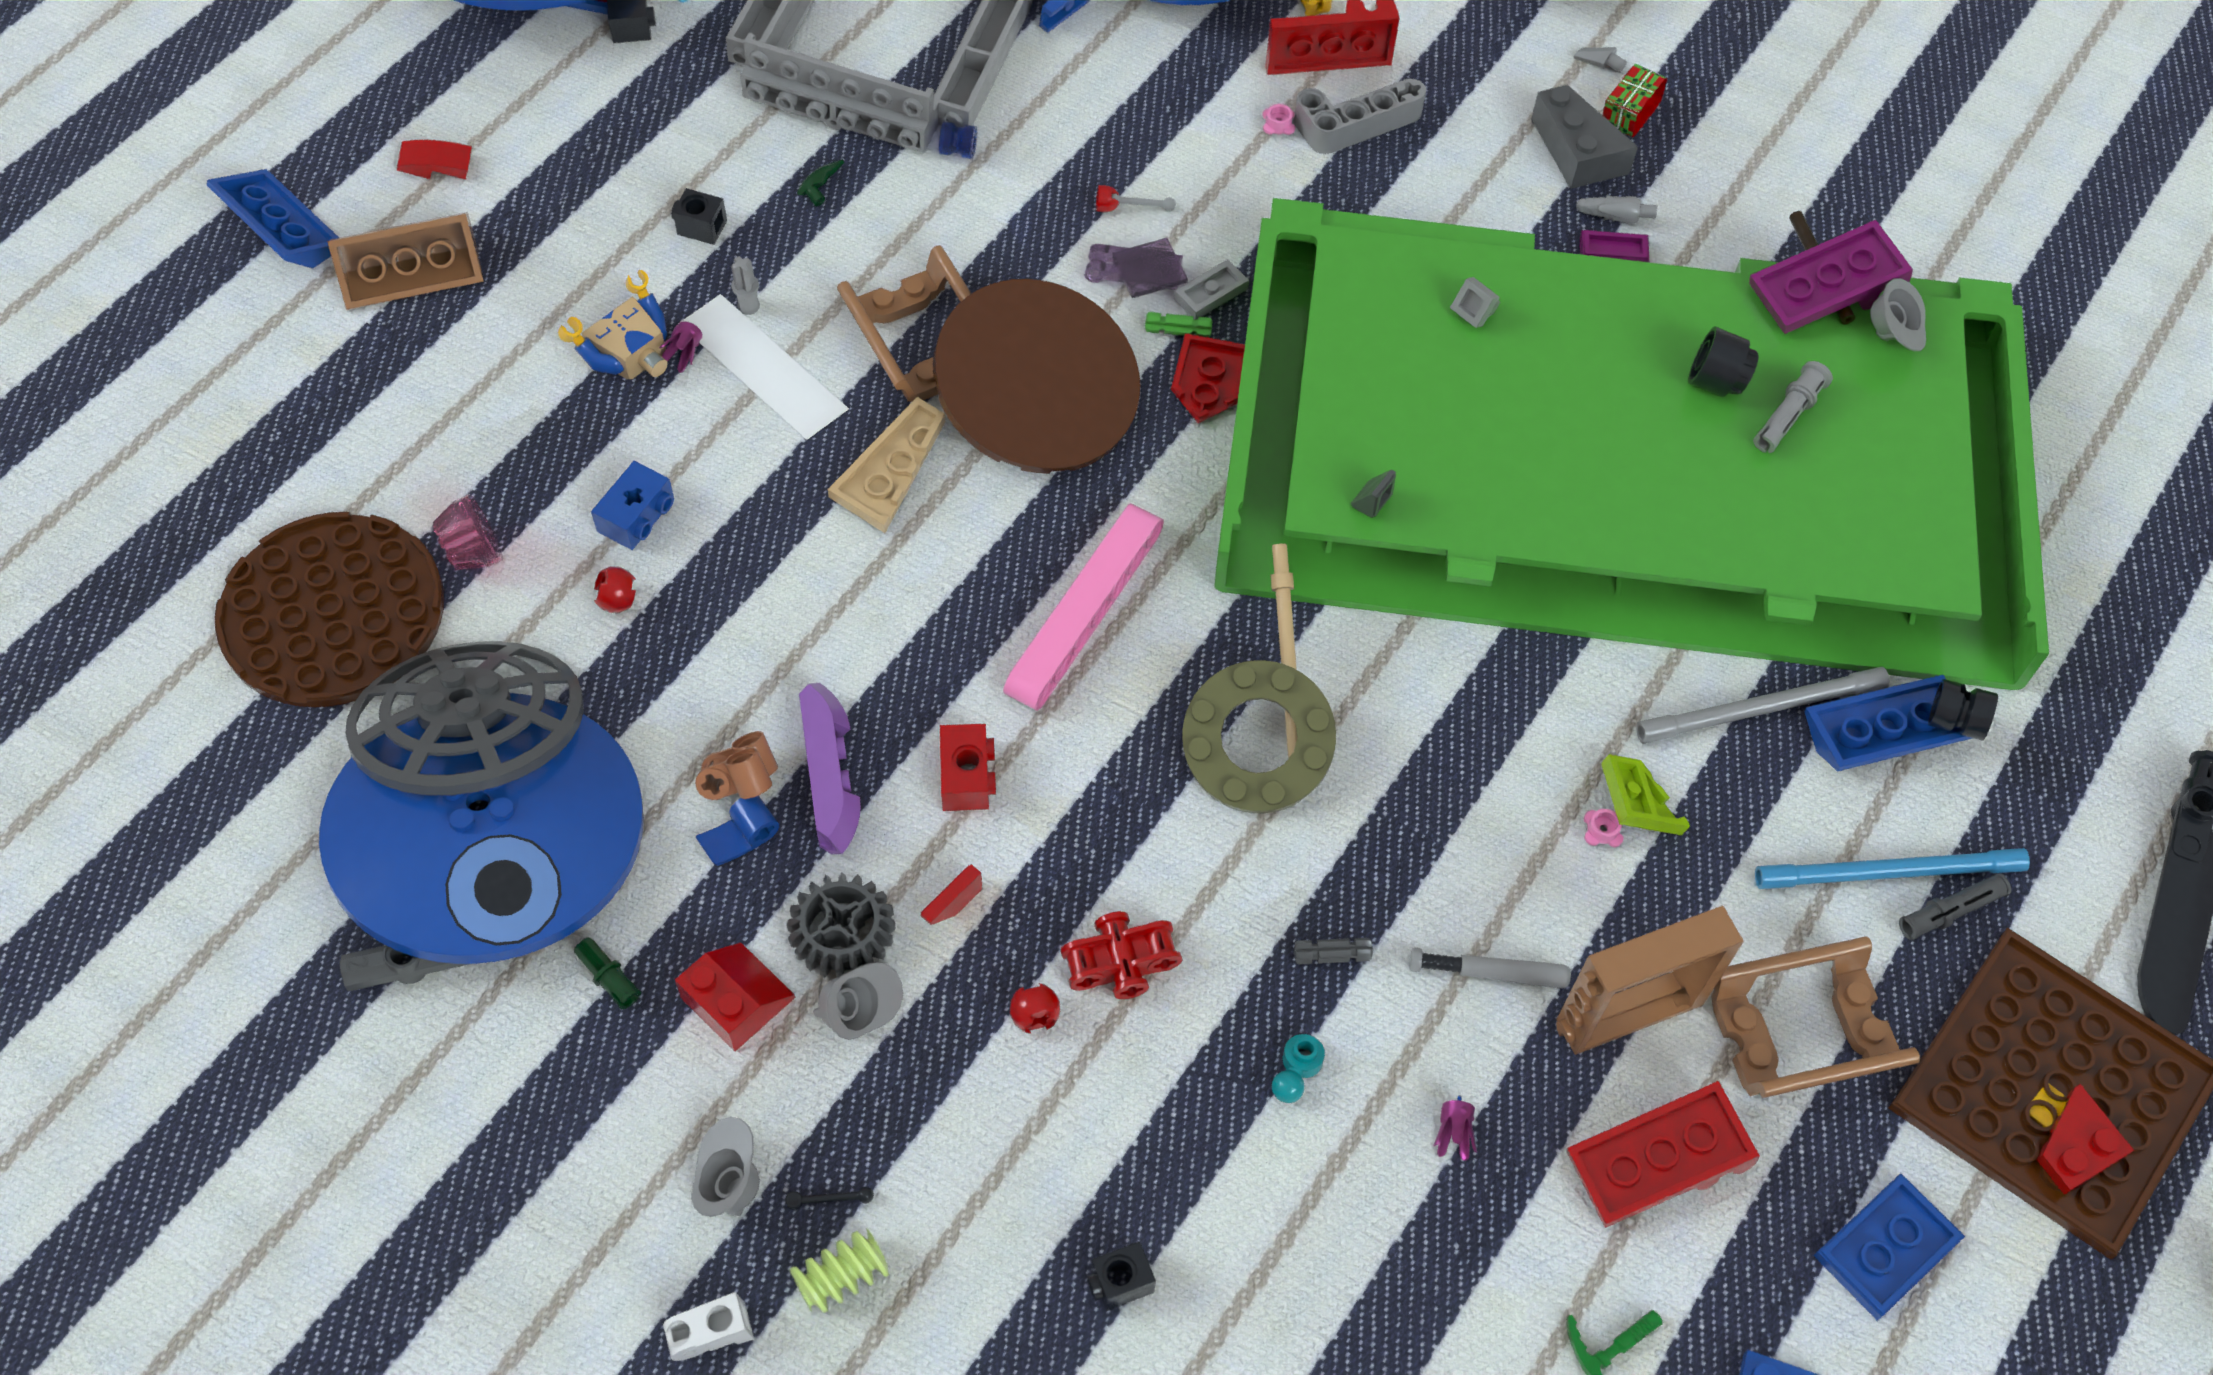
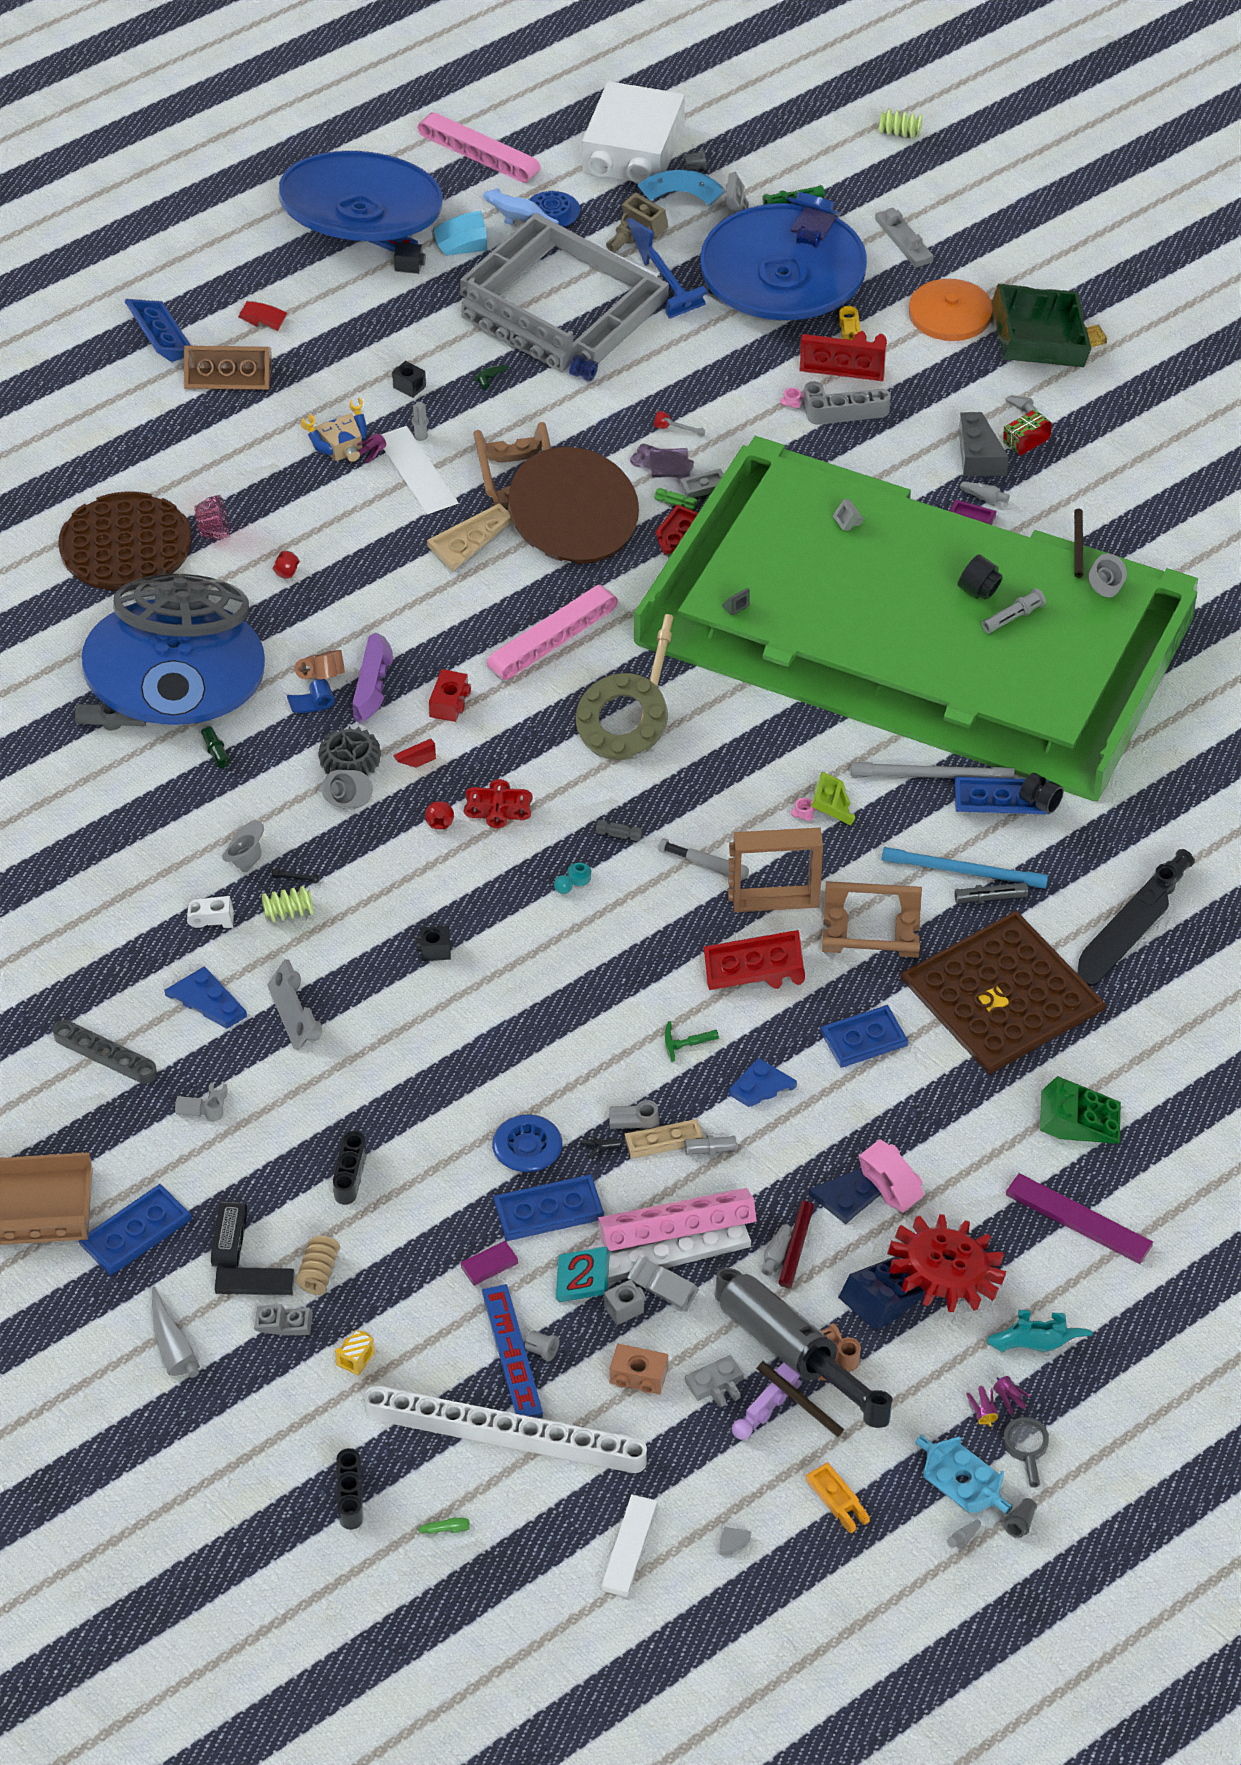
camera: 20 degrees right, 10 degrees down
(633, 505) = (312, 524): blue brick -> none
(733, 993) = (278, 771): red slope -> none
(1456, 1122) = (649, 919): flat silver piece -> none
(1830, 277) = (1074, 546): magenta hinge -> none
(2081, 1143) = (996, 1014): red wing -> none

